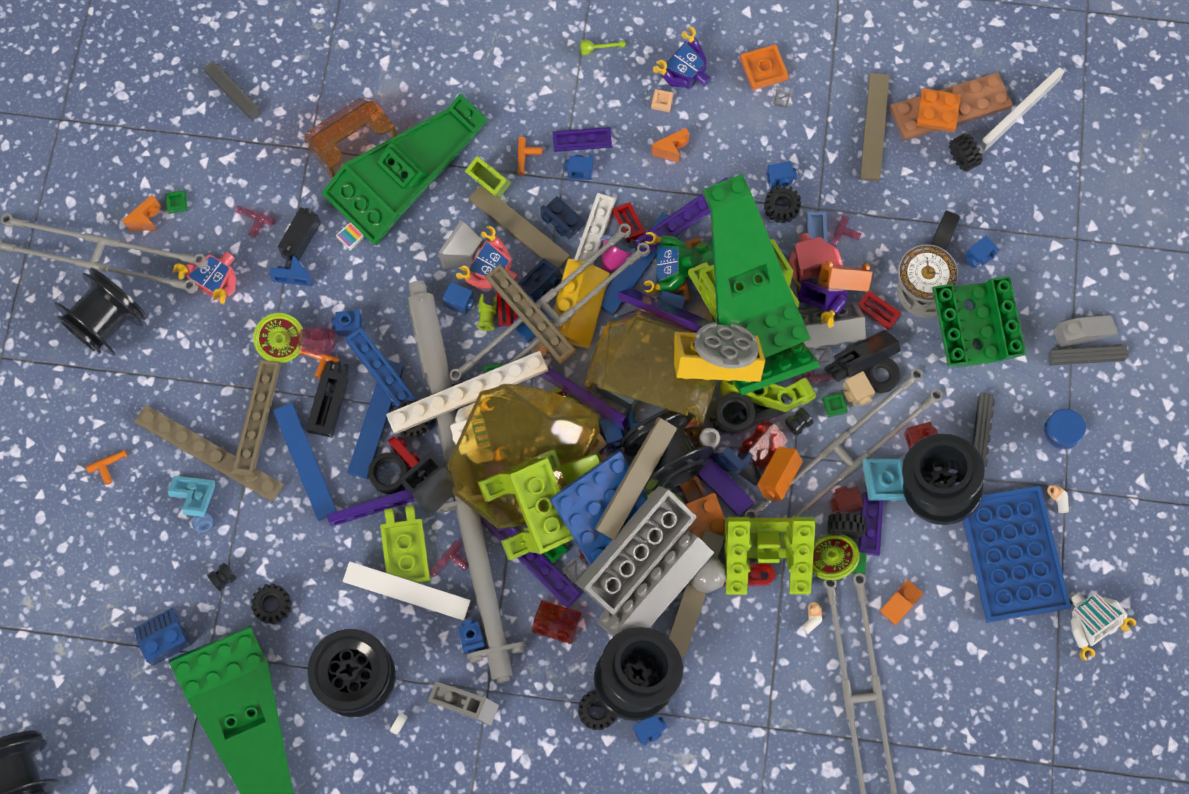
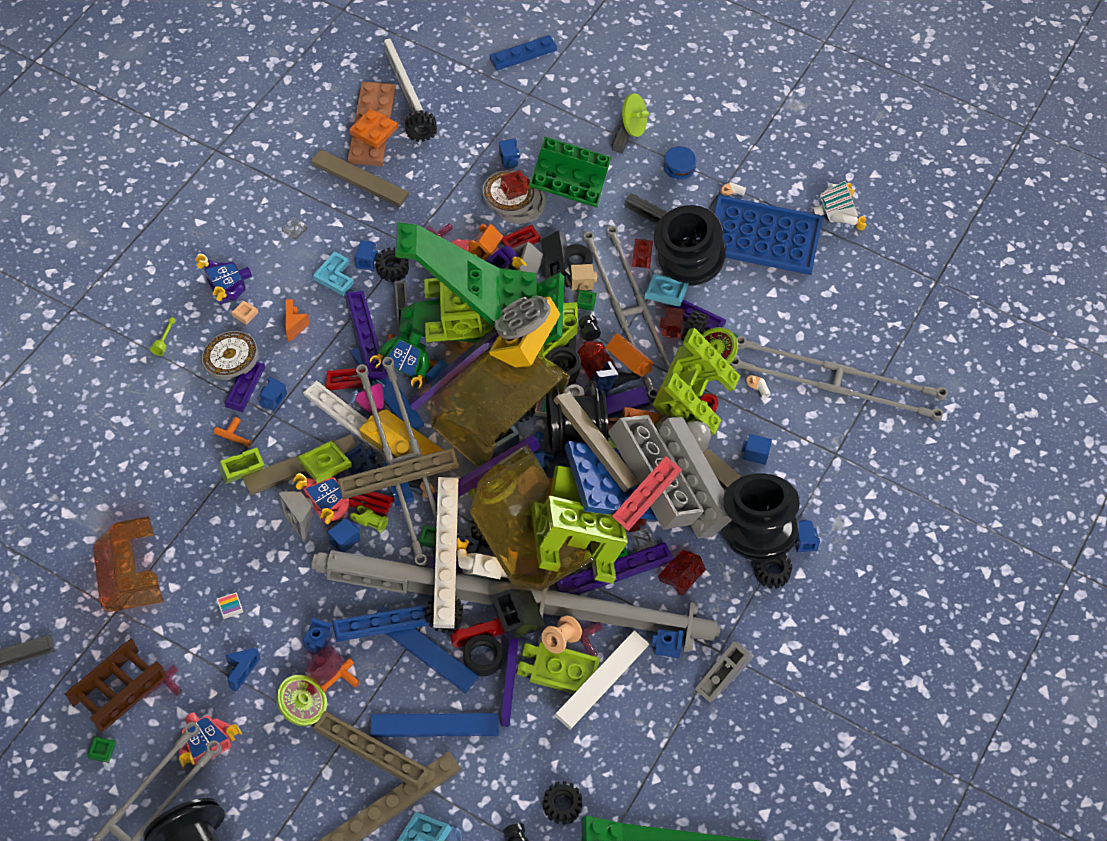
camera: 70 degrees left, 15 degrees down
(139, 218) = (102, 786): orange slope -> none
(234, 199) = (125, 699): none -> reddish brown fence
(299, 234) = (204, 646): black brick -> none
(327, 408) = (393, 688): black hinge -> none
(371, 692) = (678, 722): black wheel -> none
(377, 193) = (200, 564): green wing -> none
(398, 724) = (722, 731): white tile -> none
(433, 534) = (567, 630): none -> light nougat hose
(523, 245) = (324, 461): none -> lime tile
(562, 217) = (311, 427): dark blue bracket -> none
(594, 549) = (647, 493): none -> coral plate
(605, 110) = (230, 355): none -> tile
(730, 643) = (756, 449): none -> blue brick
(744, 152) = (331, 274): none -> medium azure plate
(764, 67) = (260, 228): orange plate -> none
(901, 602) = (771, 322): orange slope -> none
(933, 273) = (514, 184): none -> clear red brick
(945, 229) = (479, 164): black tyre -> none
(1084, 330) = (607, 120): light grey slope -> none
(1098, 355) = (634, 115): none -> lime shield
(1130, 209) = (523, 52): none -> blue plate

